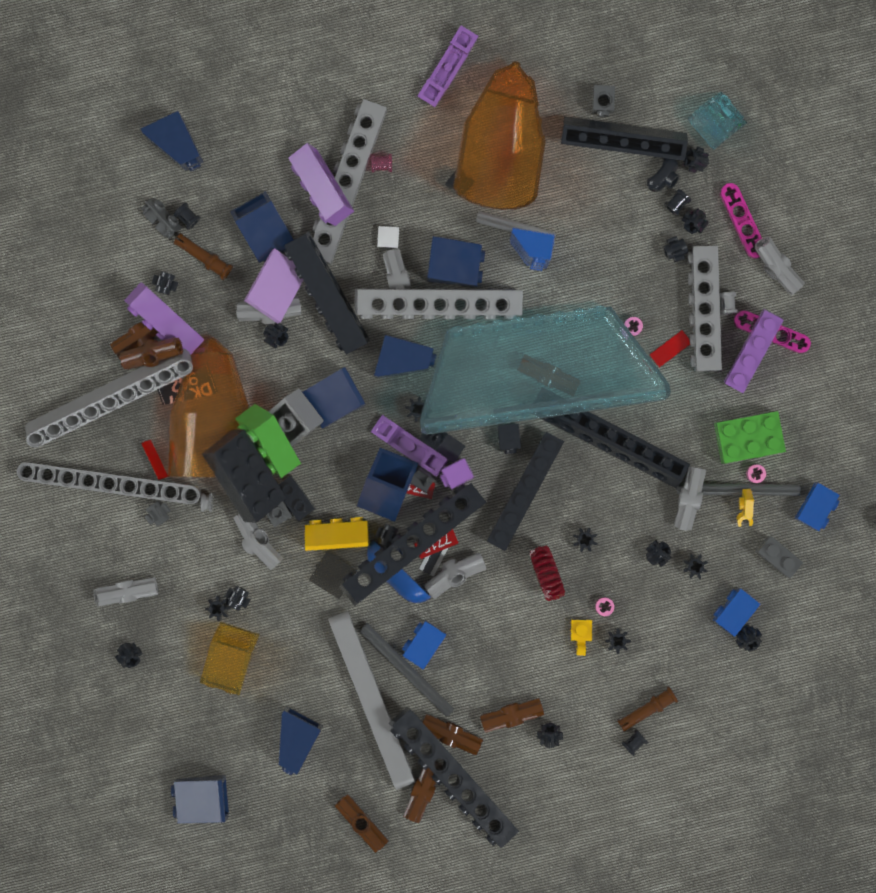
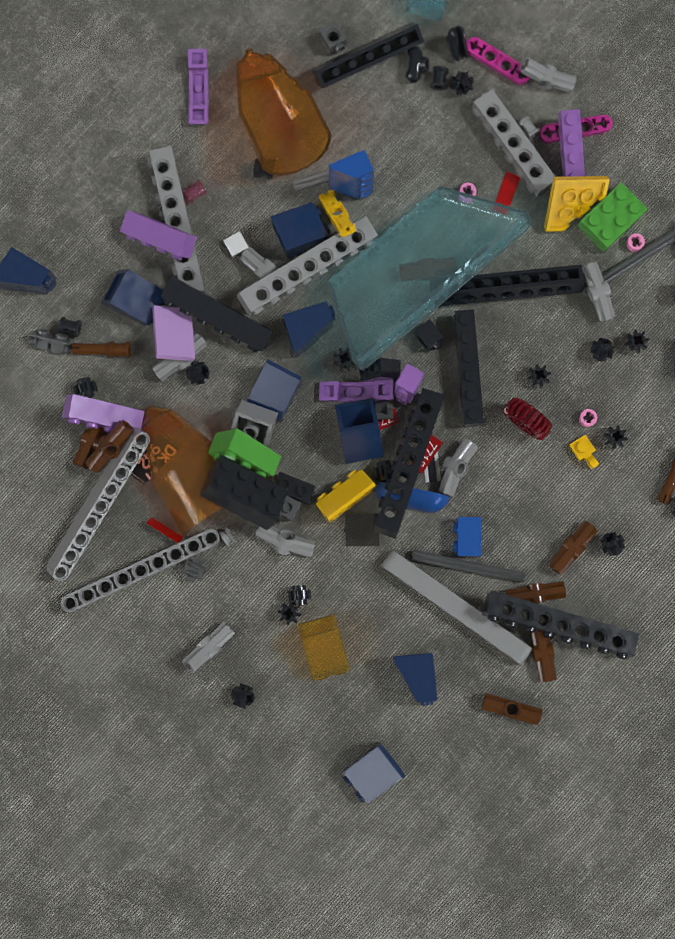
camera: 30 degrees left, 5 degrees down
(497, 281) = (341, 221): none -> yellow piece
(675, 249) = (461, 113): black gear -> none
(696, 159) = (433, 37): black gear -> none
(715, 180) = (457, 42): none -> black piece
(723, 397) = (572, 198): none -> yellow plate
(746, 504) = (645, 269): yellow plate -> none

